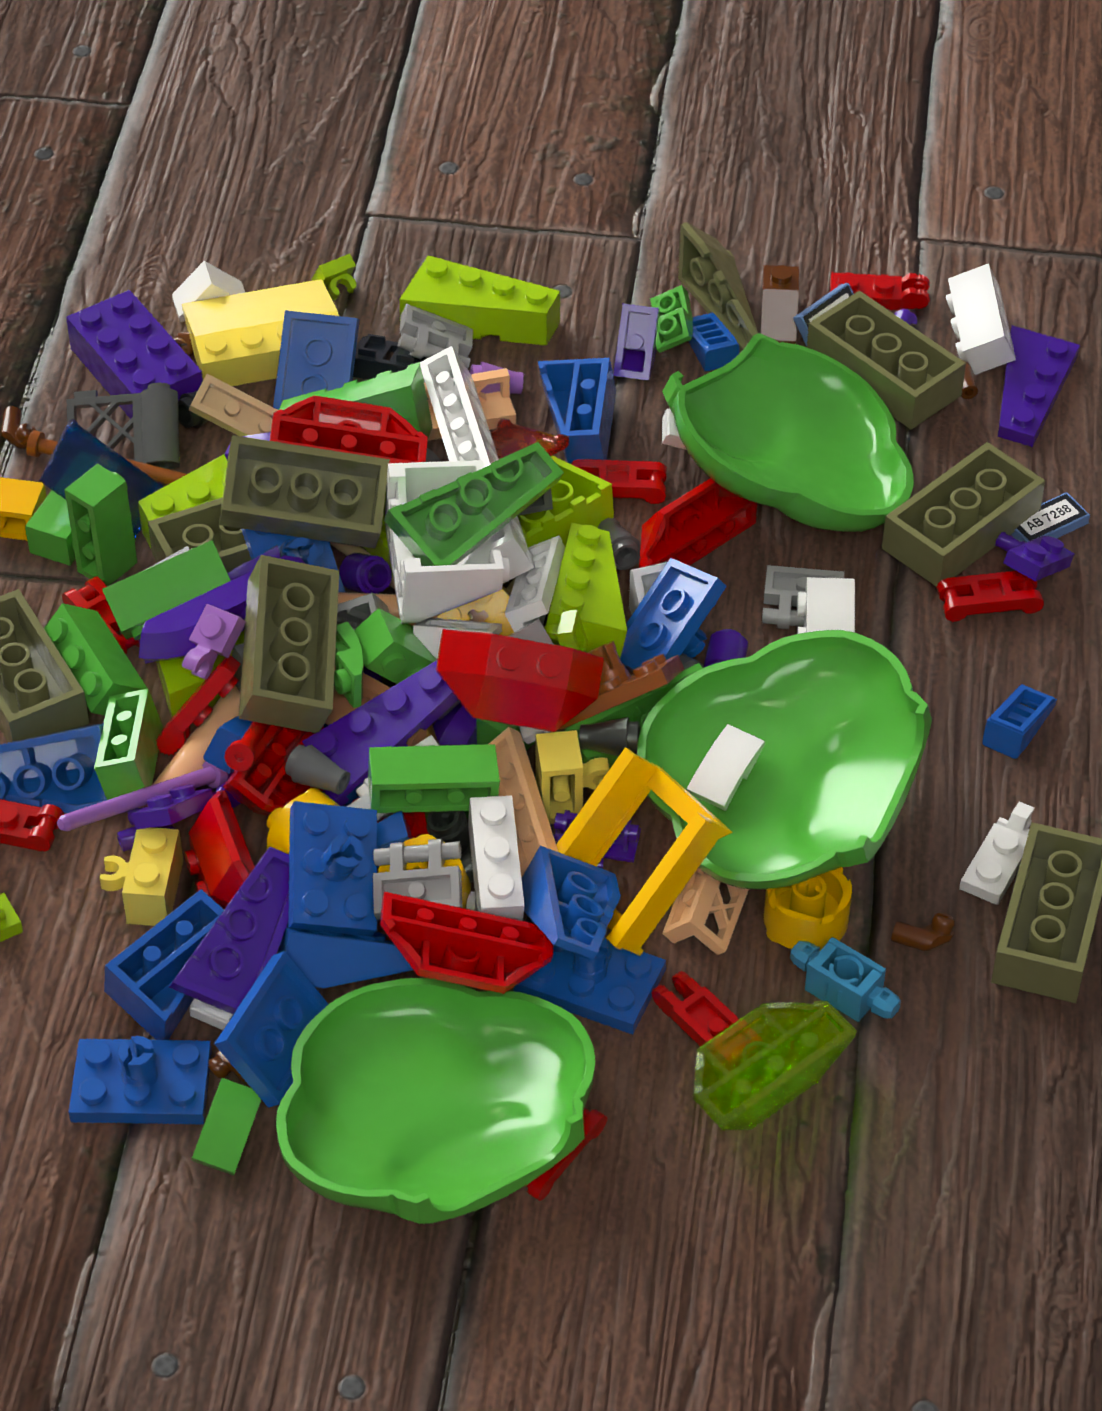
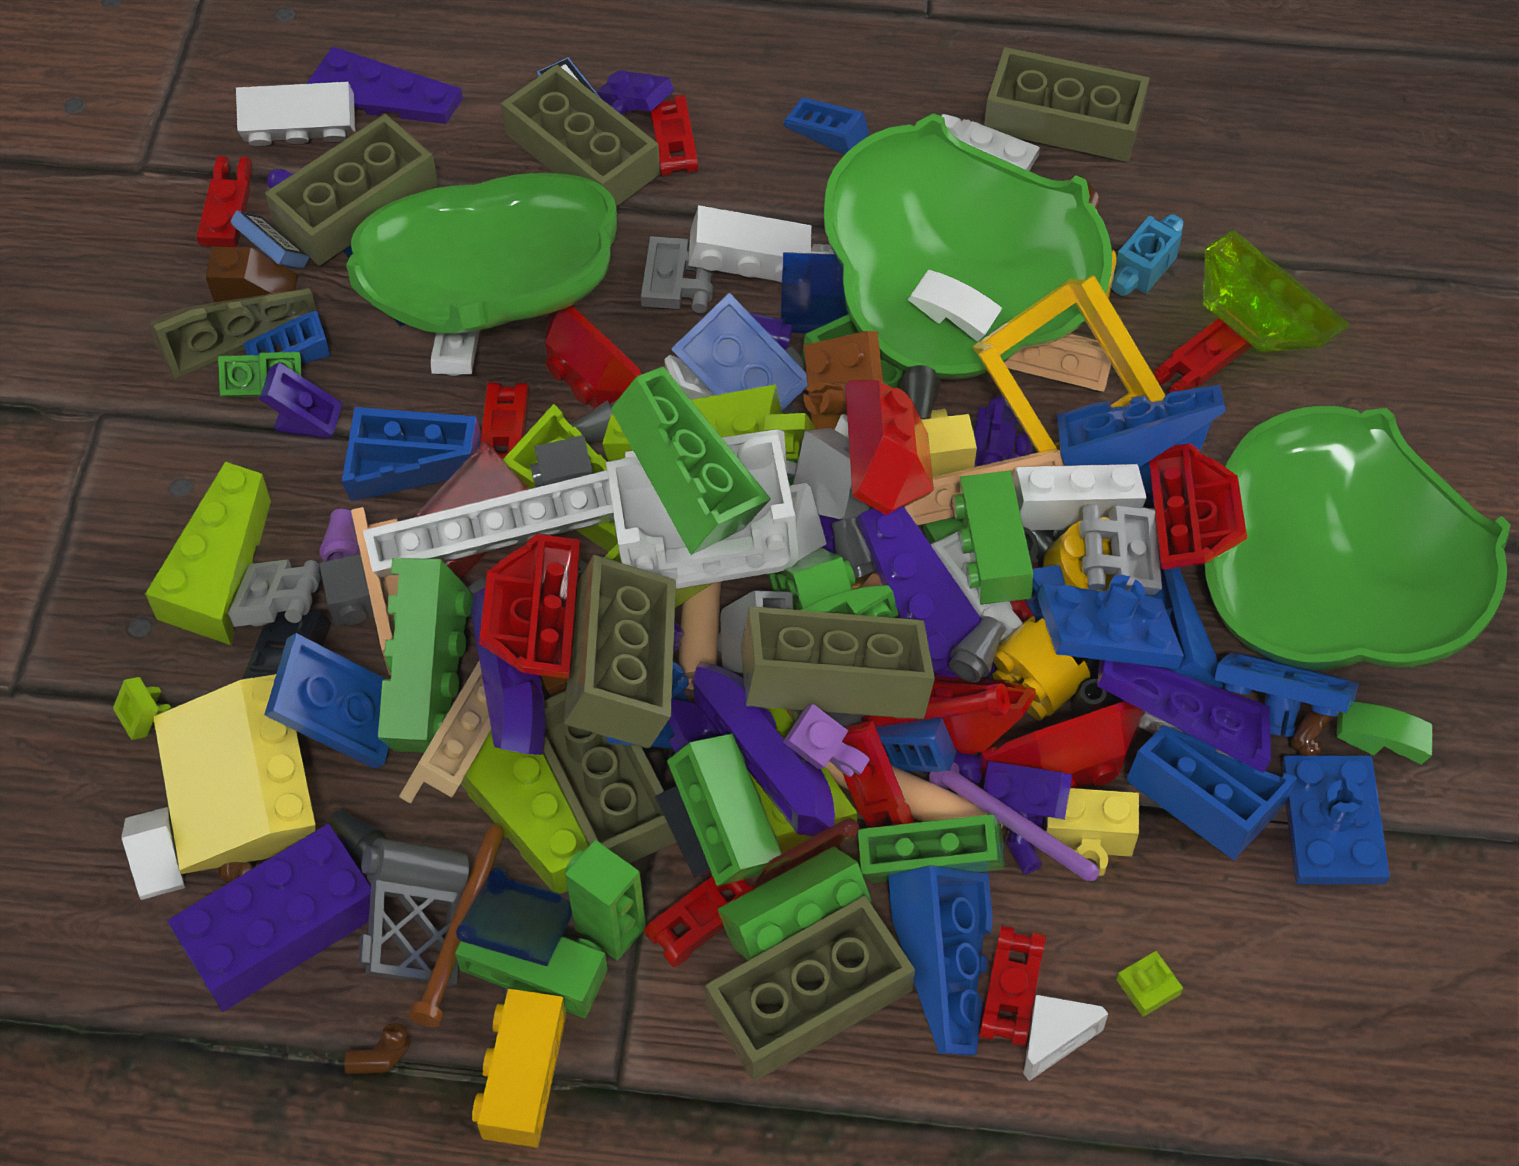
camera: 90 degrees left, 10 degrees up
(118, 641) = (808, 849): none -> clear red piece

